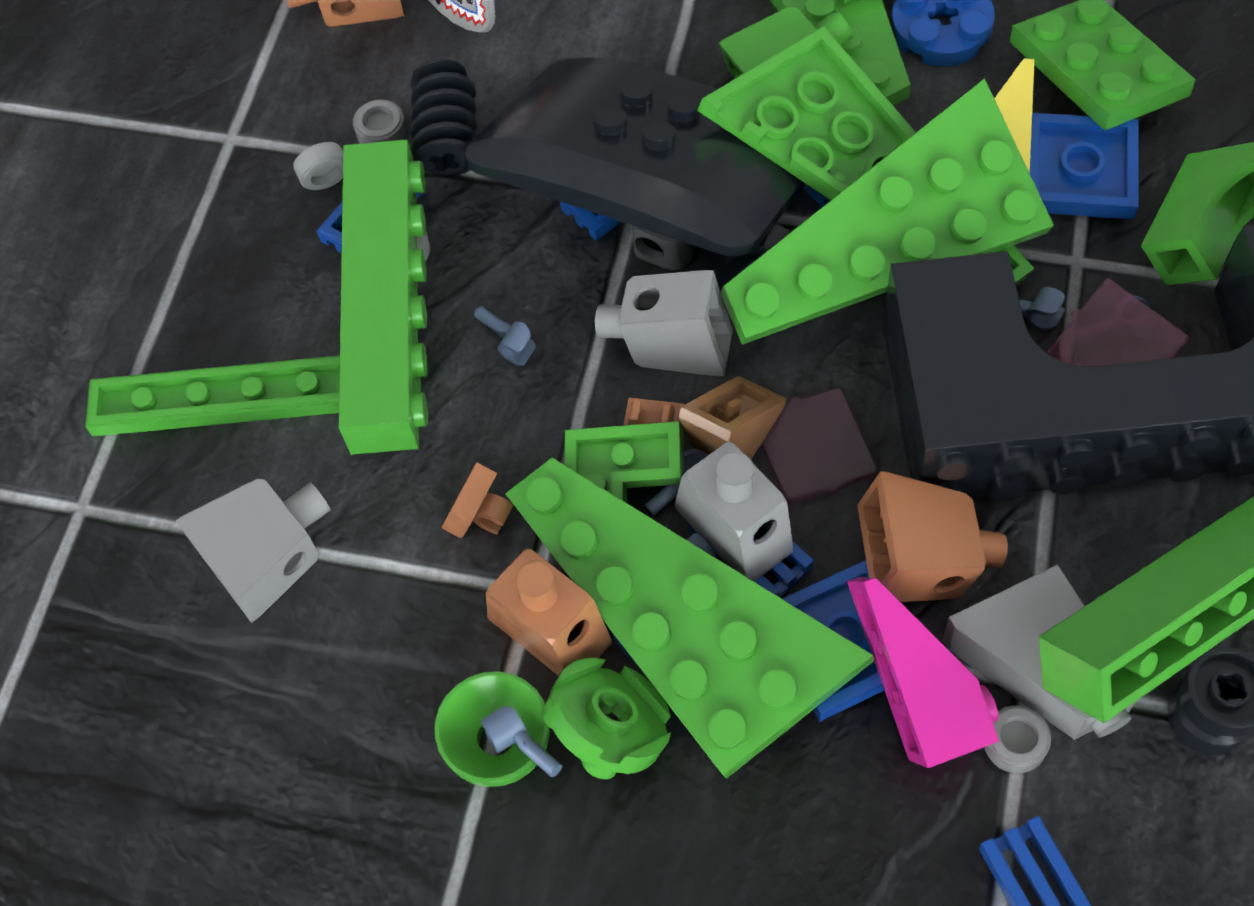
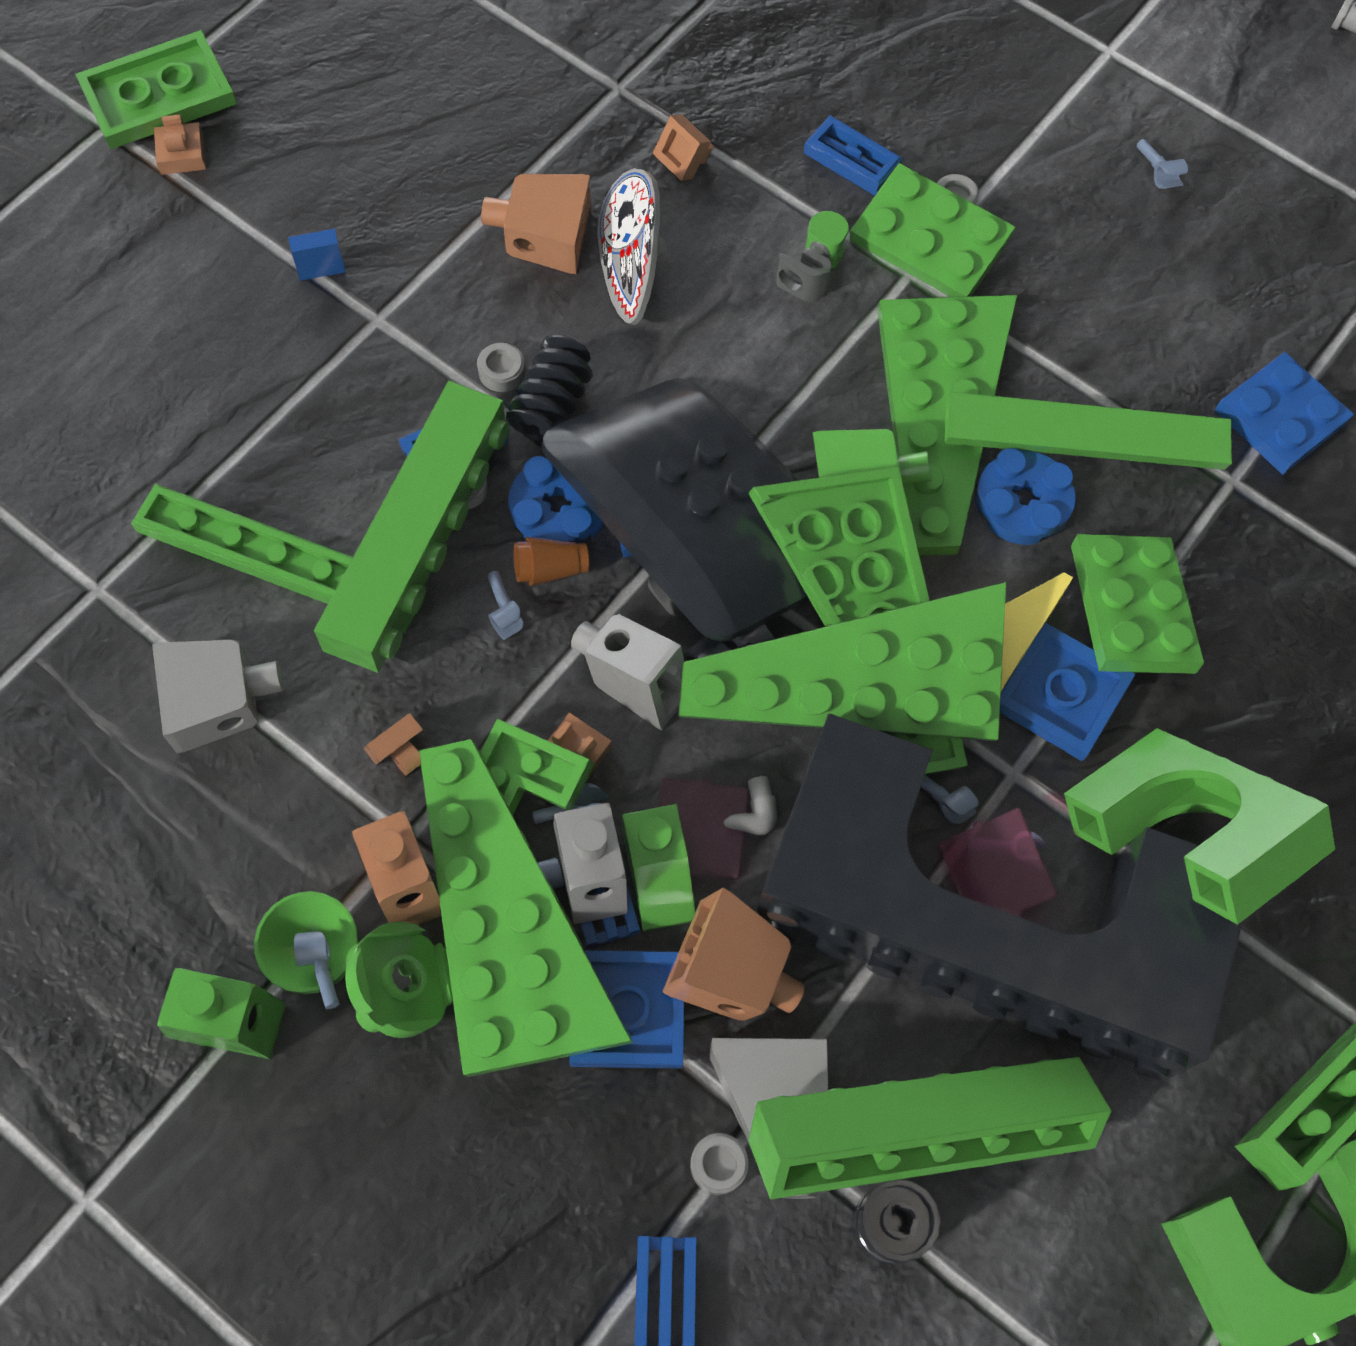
camera: 15 degrees right, 5 degrees up
(140, 101) = (317, 254): none -> blue tile
(319, 166) = (428, 382): light grey tile -> none
(442, 838) = (217, 1011): none -> bright green torso
(487, 240) = (534, 515): none -> blue plate
(527, 271) = (548, 560): none -> dark orange cone
(731, 413) = (641, 773): medium nougat slope -> none
(816, 503) = (659, 867): none -> bright green slope
(868, 401) = (763, 808): none -> light grey animal
(930, 692) = (663, 1094): dark pink slope -> none

